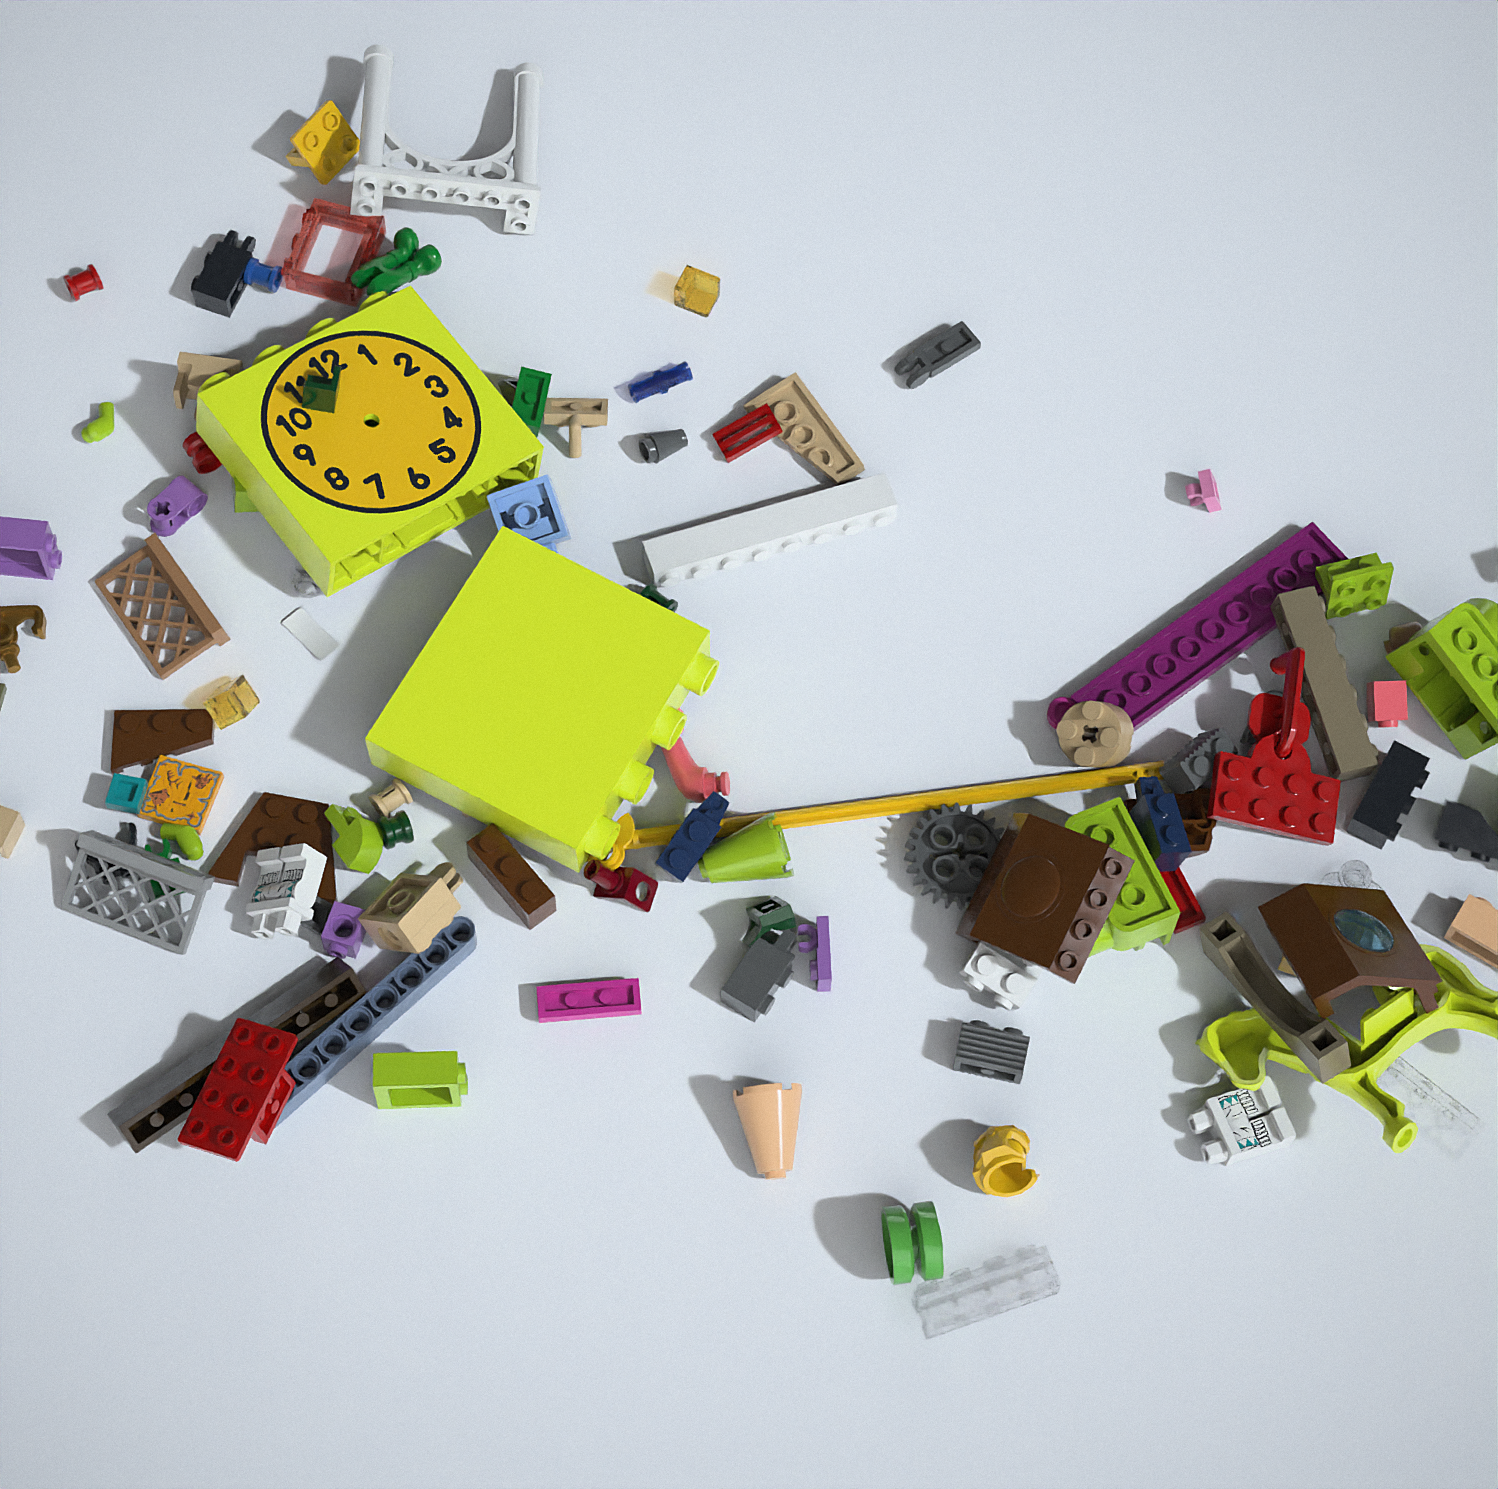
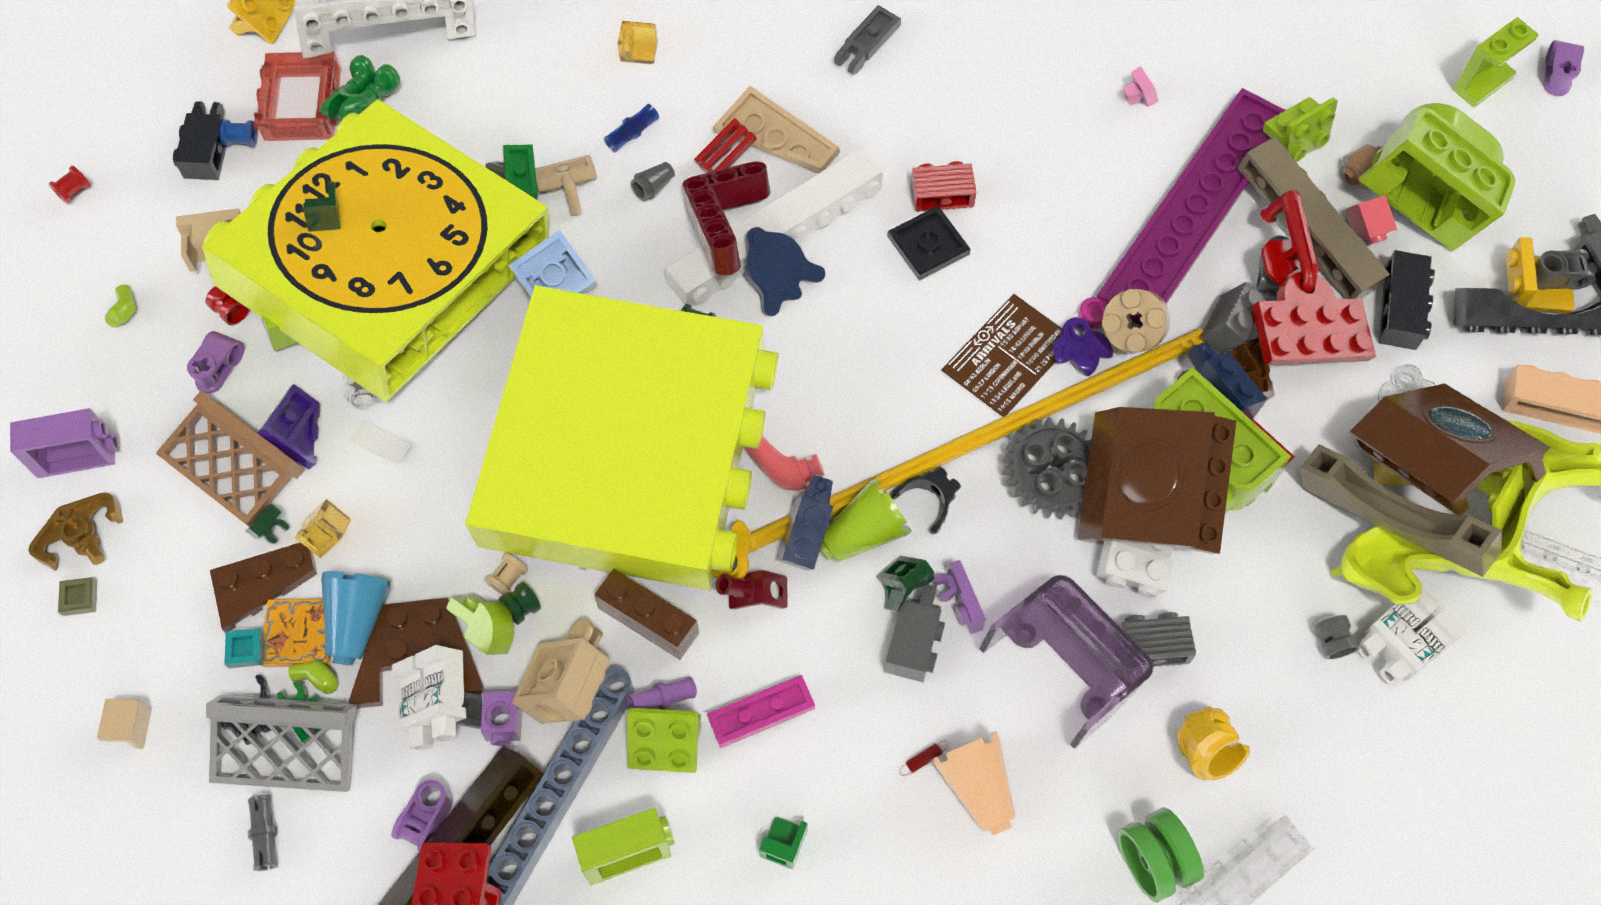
camera: 15 degrees left, 0 degrees up
(95, 967) = (262, 833): none -> dark grey pin
(179, 679) = (265, 522): none -> dark green tile
(232, 593) = (294, 426): none -> dark purple wing
(234, 790) = (350, 612): none -> dark azure cone
(243, 997) = (422, 817): none -> medium lavender piece
(487, 996) = (663, 739): none -> lime bracket
(499, 956) = (662, 694): none -> medium lavender pin
(568, 1126) = (783, 842): none -> green panel
(721, 476) = (712, 193): none -> dark red beam
(725, 1092) = (924, 757): none -> red piece
(754, 573) = (776, 268): none -> dark blue tile
(837, 836) = (936, 483): none -> black helmet
(920, 1024) = (1084, 640): none -> clear purple windscreen
(921, 591) = (928, 242): none -> black tile
(956, 537) = (944, 186): none -> brick
(960, 730) = (1006, 355): none -> reddish brown sticker
(1034, 747) = (1082, 349): none -> dark purple plate
(1171, 1102) = (1337, 637): none -> dark grey wheel

